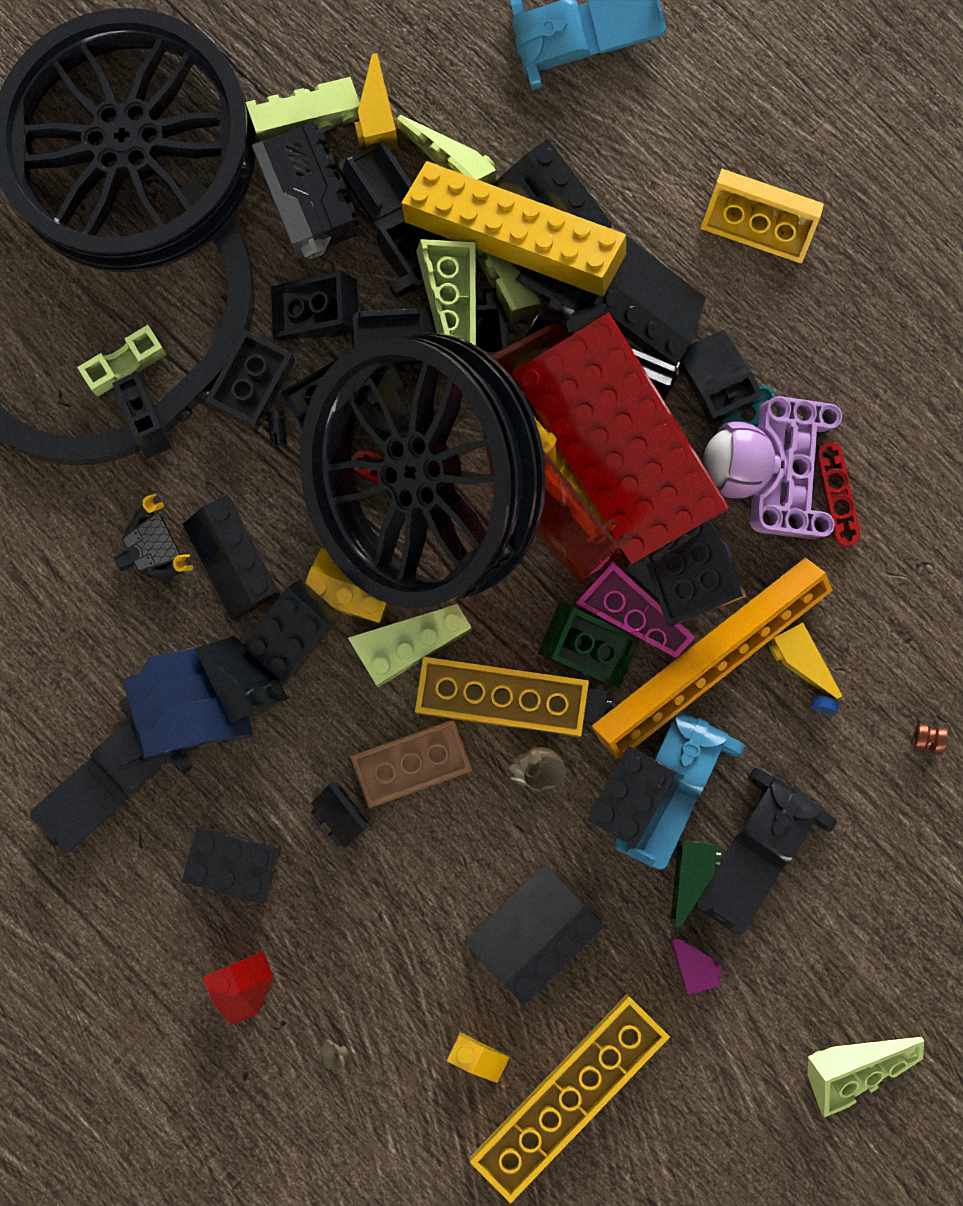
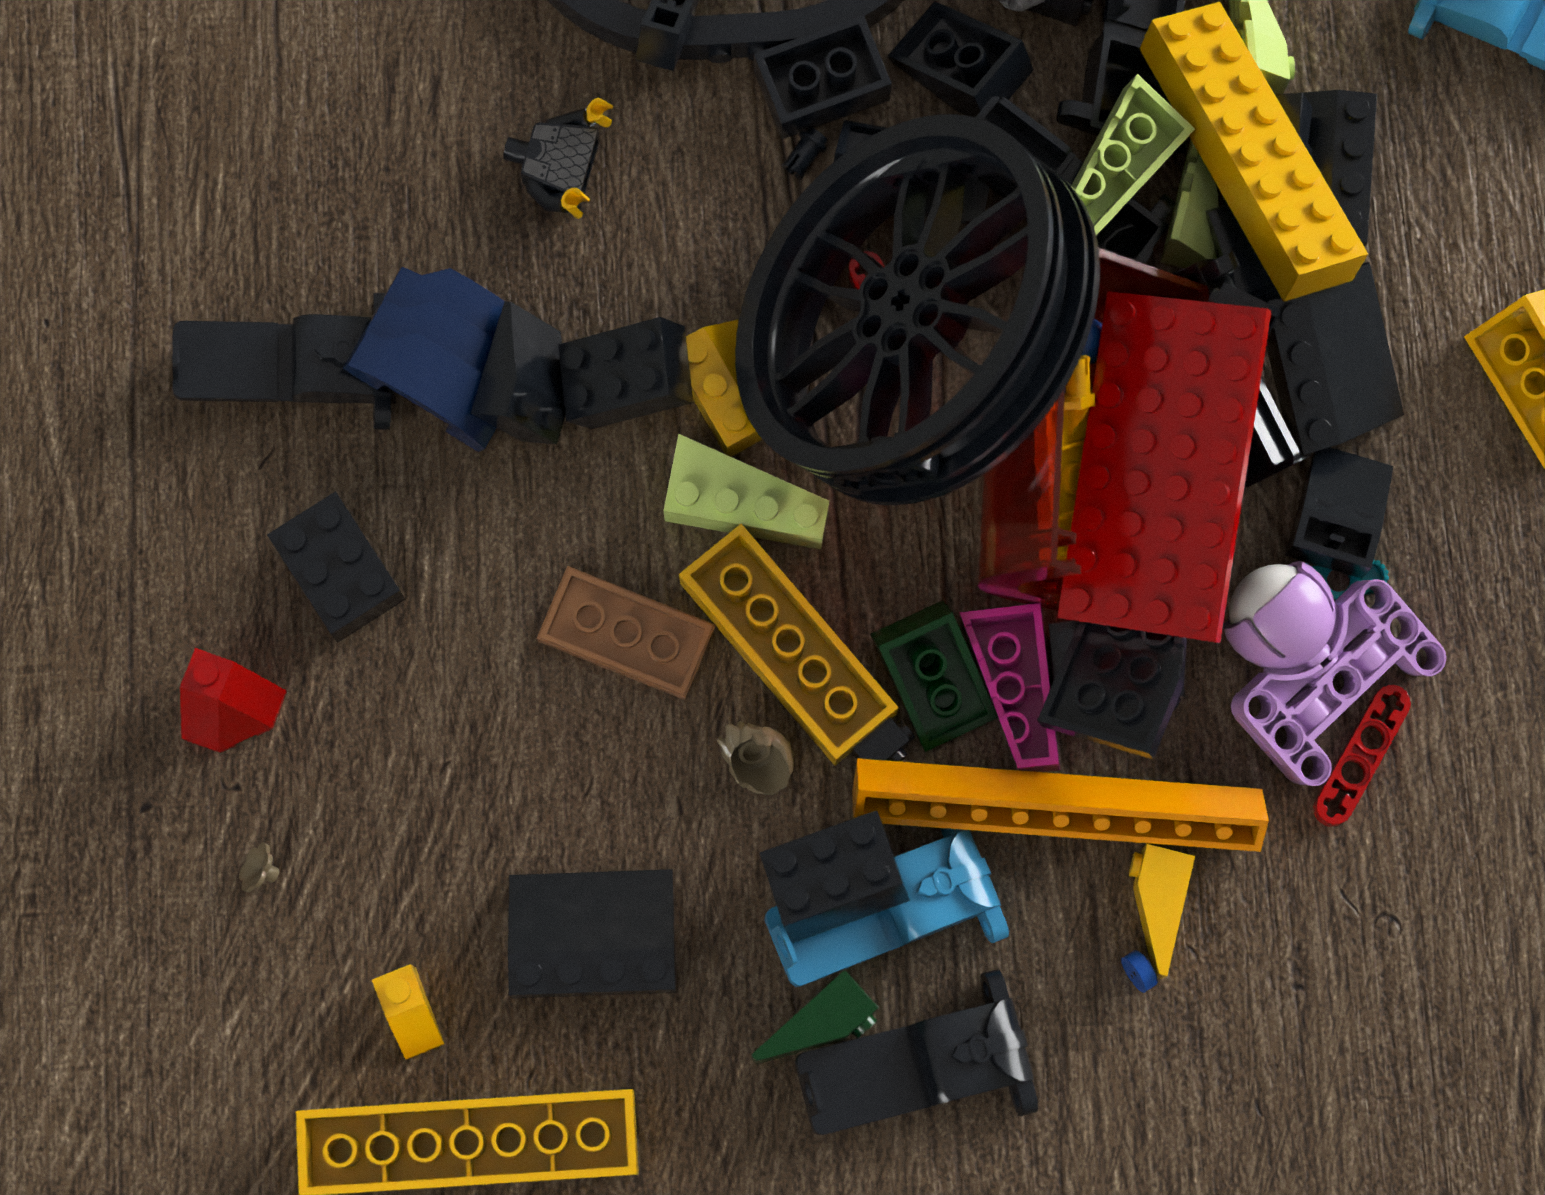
camera: 40 degrees right, 5 degrees down
(230, 557) = (633, 244): black slope -> none
(340, 815) = (500, 615): black slope -> none
(695, 968) = (735, 1129): magenta slope -> none
(929, 738) = (1225, 1113): copper wheel -> none

